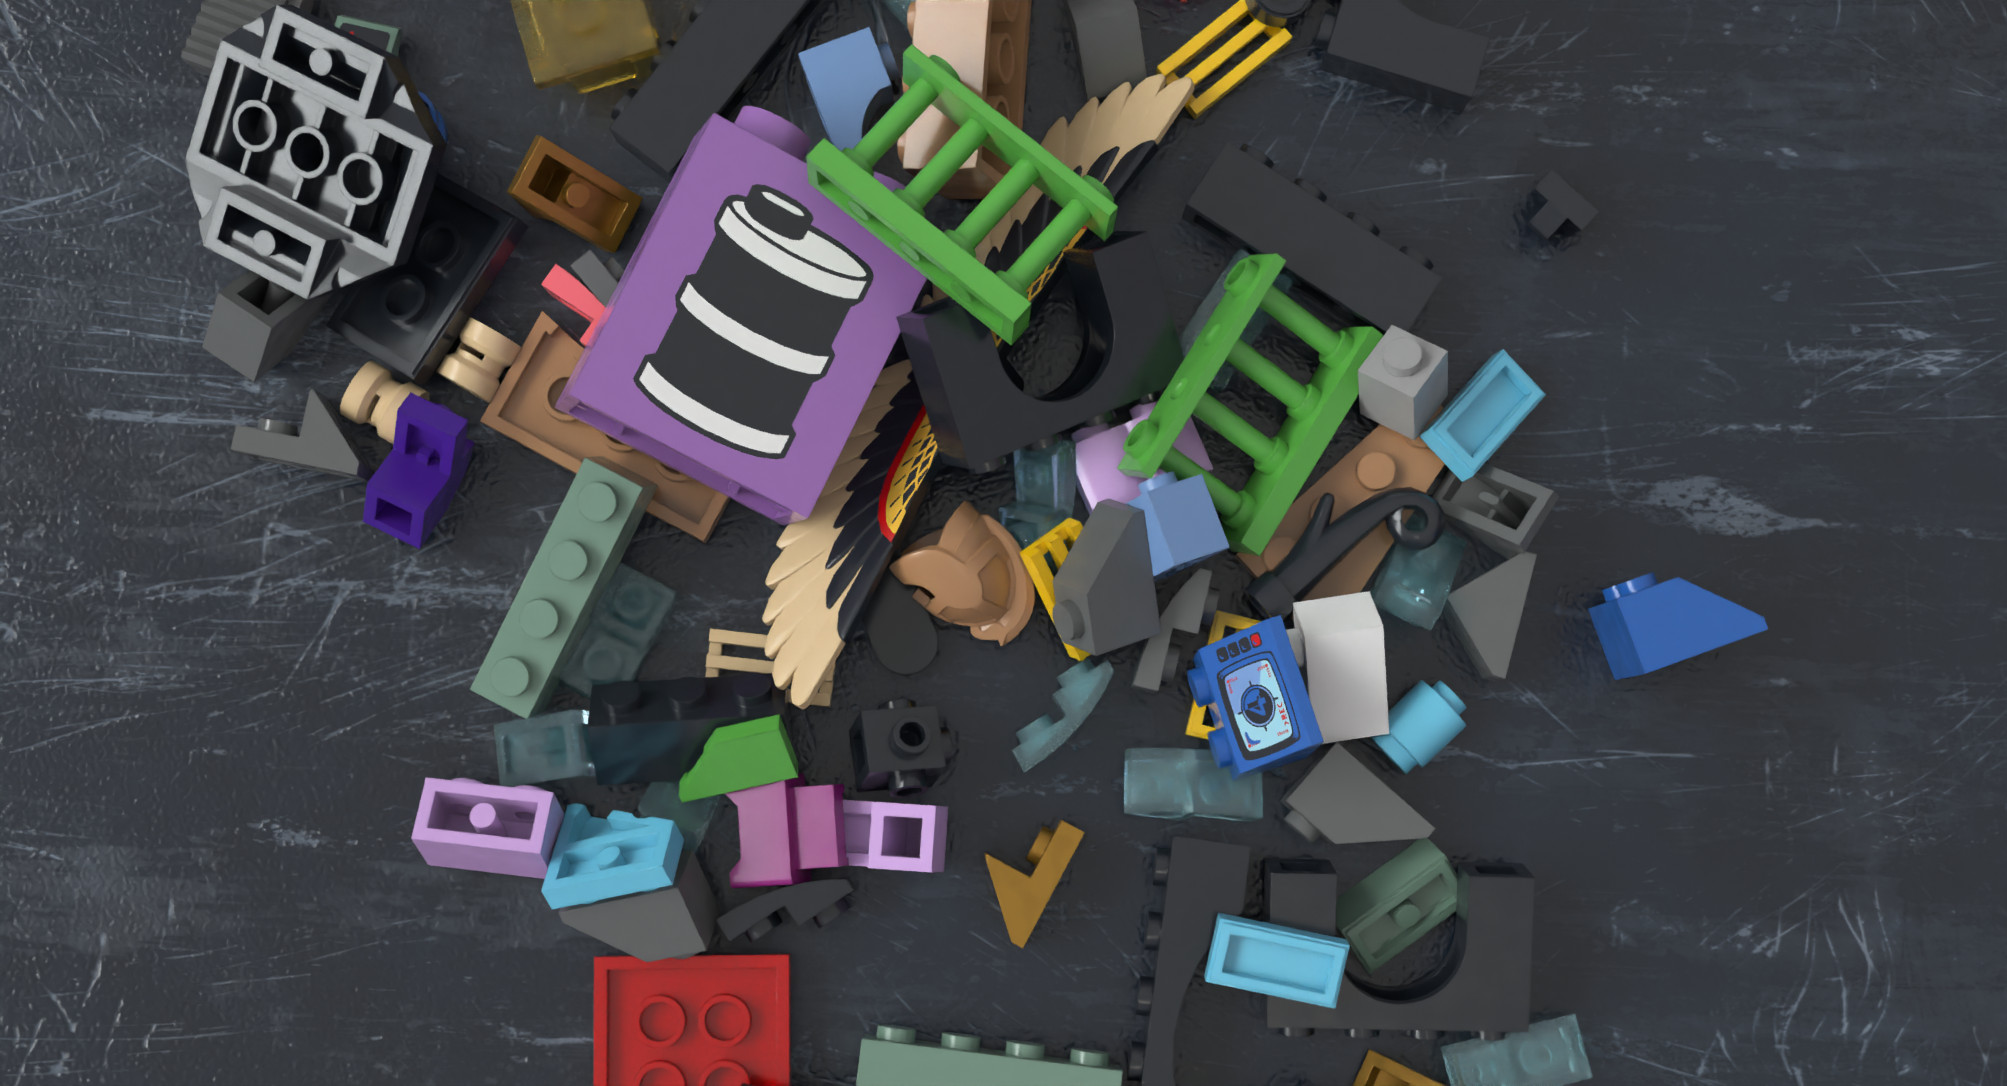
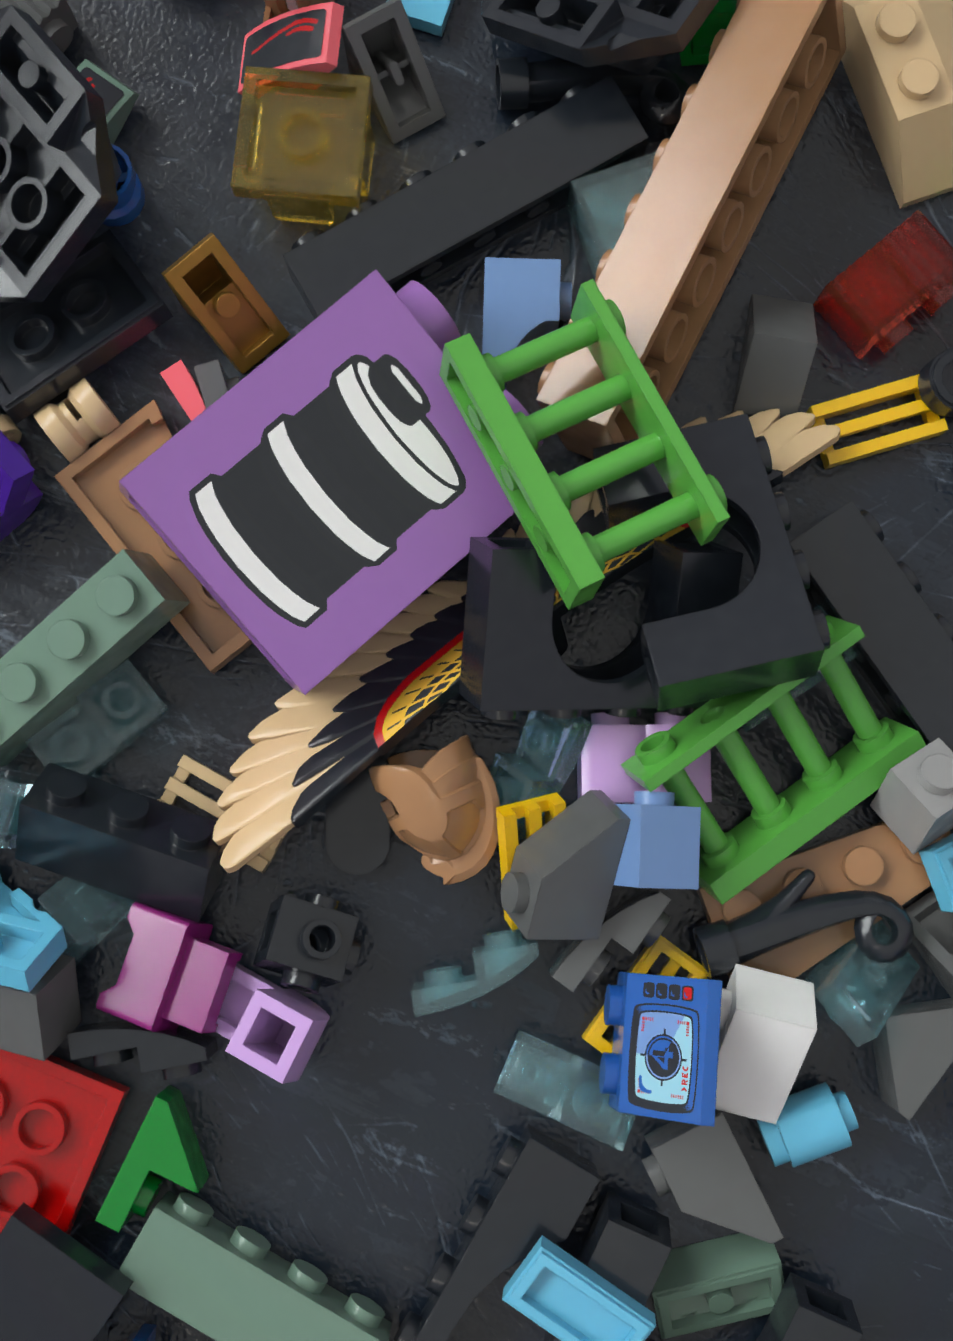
camera: 25 degrees right, 0 degrees up
(740, 759) = (153, 893): bright green tile -> none
(841, 986) = (163, 1147): none -> green slope
(1025, 896) = (370, 1129): pearl gold slope -> none
(1195, 289) = (766, 630): none -> black arch

